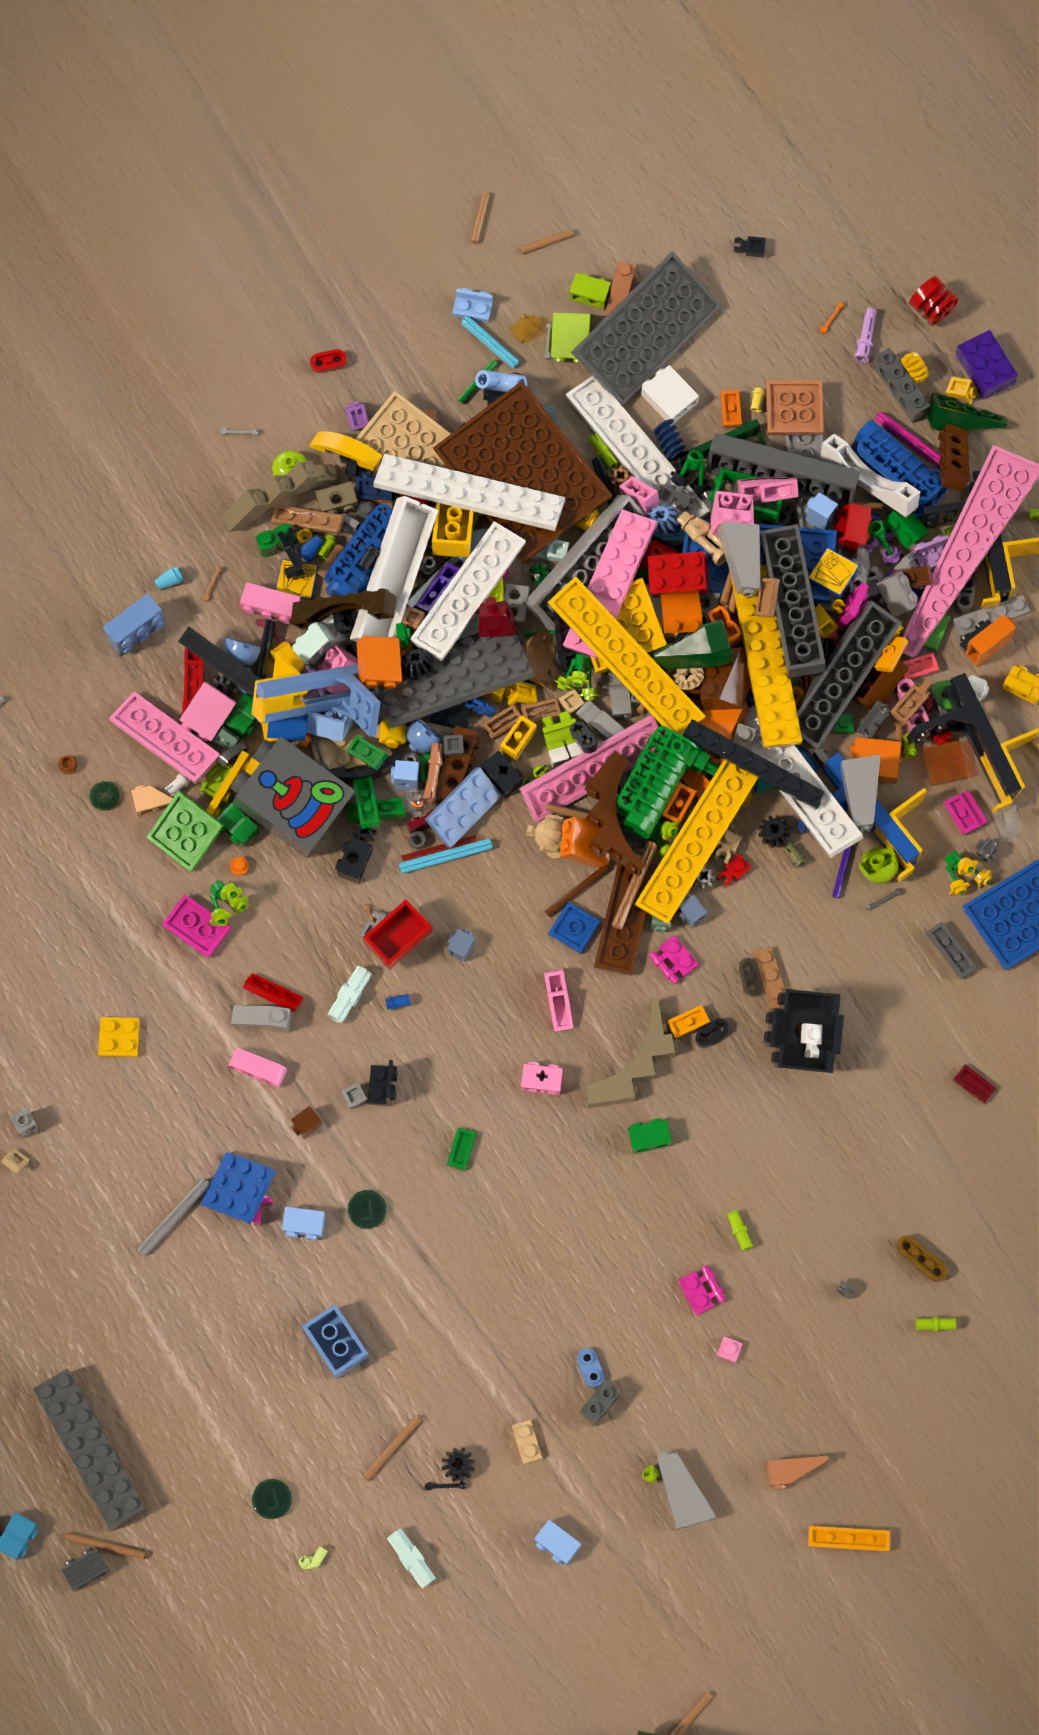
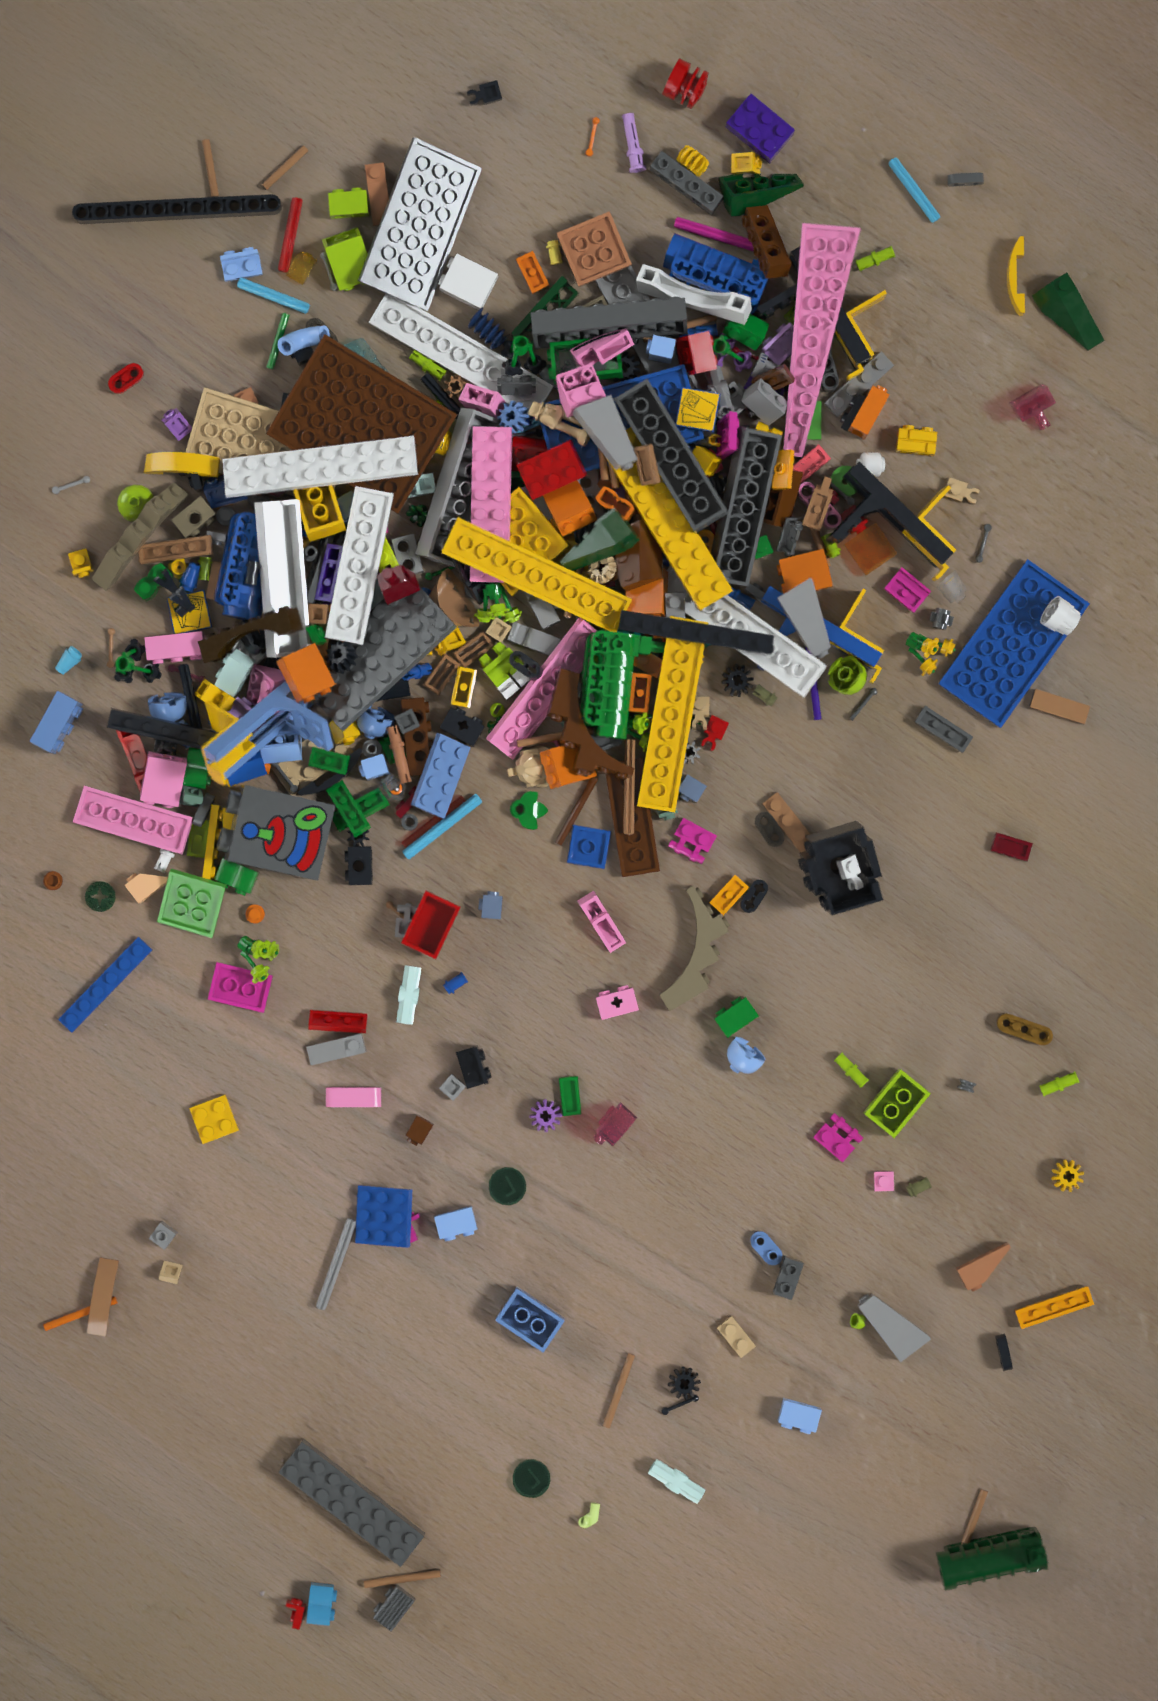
camera: 25 degrees left, 15 degrees up
(73, 875) = (105, 984): none -> blue plate
(218, 500) = (80, 563): none -> yellow bracket
(218, 600) = (125, 664): none -> plant
(423, 1158) = (540, 1120): none -> medium lavender gear
(441, 245) = (169, 204): none -> black beam
(492, 1188) = (614, 1124): none -> clear pink brick
(527, 297) = (290, 234): none -> red axle
(535, 872) = (531, 810): none -> green plate
(641, 1176) = (743, 1057): none -> light blue cylinder
(761, 1368) = (918, 1187): none -> olive pin
(771, 1277) = (896, 1103): none -> lime brick
(782, 1562) = (1003, 1351): none -> black beam
(915, 1411) = (1071, 1169): none -> yellow gear

